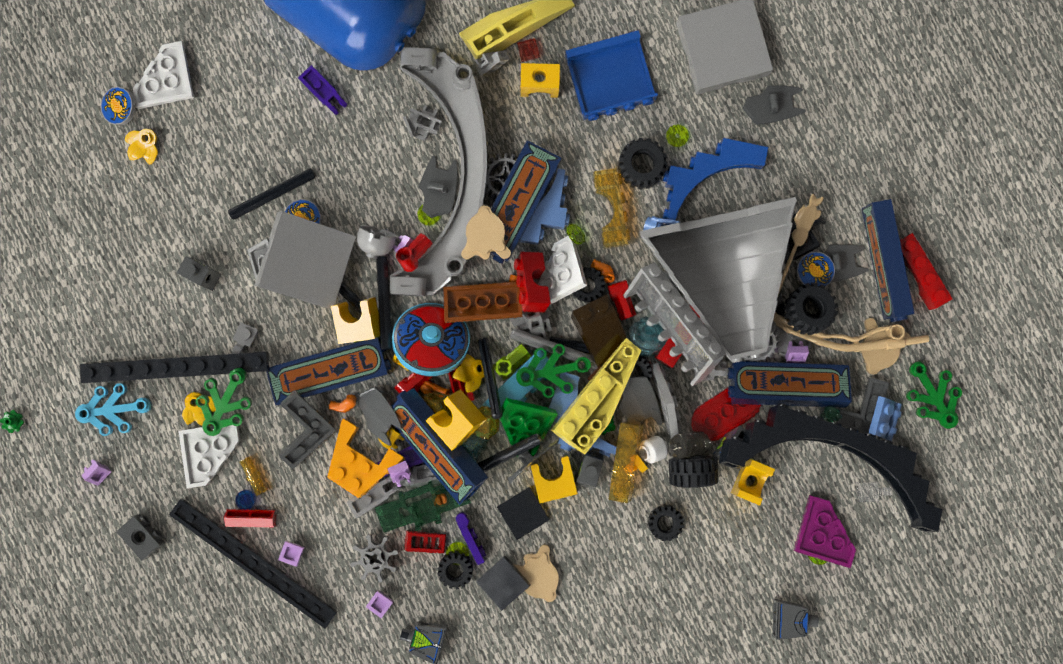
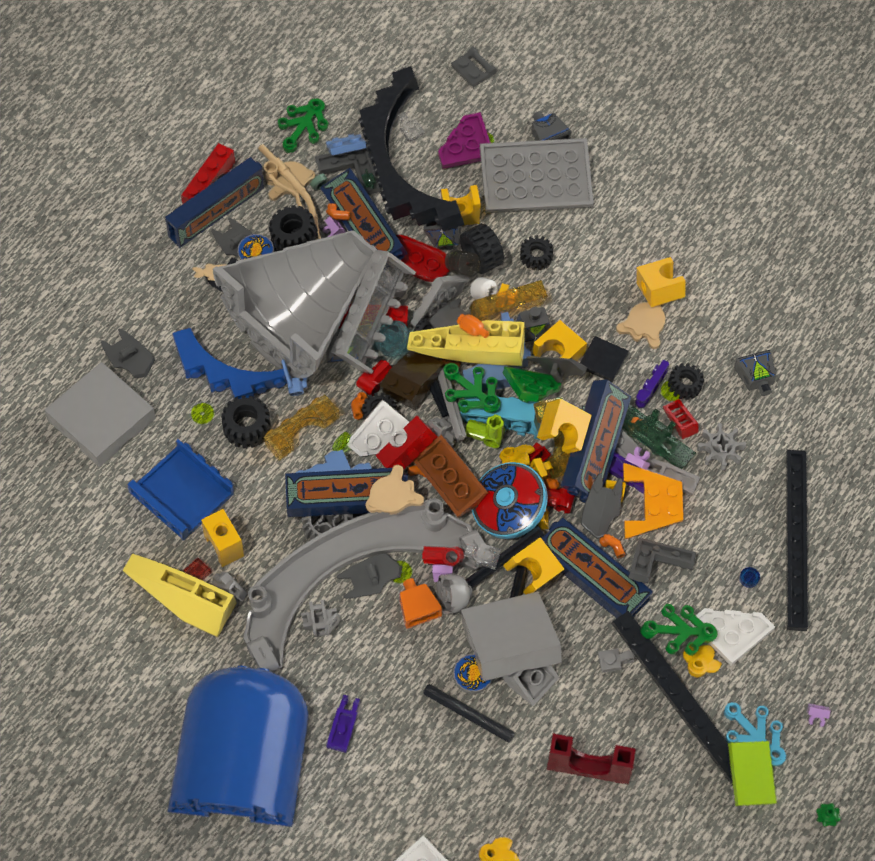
camera: 120 degrees left, 25 degrees down
(78, 382) = (752, 773): none -> lime tile
(130, 534) = (847, 630): dark grey brick -> none
(149, 276) = (613, 767): none -> dark red arch
(198, 273) = (583, 728): dark grey torso -> none
(250, 518) = (764, 560): red piece -> none
(253, 476) = (725, 581): clear yellow pin -> none
(291, 553) = (766, 510): lavender tile -> none
(379, 604) = (754, 420): lavender tile -> none
(387, 208) = (418, 604): none -> orange torso
(389, 285) = (486, 555): none -> clear plate
(442, 383) = (540, 467): none -> yellow tile
(490, 379) = (510, 430): black axle -> none
(503, 583) = (669, 341): black tile -> none
(510, 452) = (559, 382): black axle -> none
(562, 604) = (657, 282): none -> yellow piece
(607, 404) = (472, 325): none -> orange plant
(748, 575) = (536, 175): none -> light grey plate
(809, 360) = (336, 214): none -> orange arm
(858, 371) = (318, 181): none -> sand green tile
(905, 590) = (470, 71): none -> dark grey plate

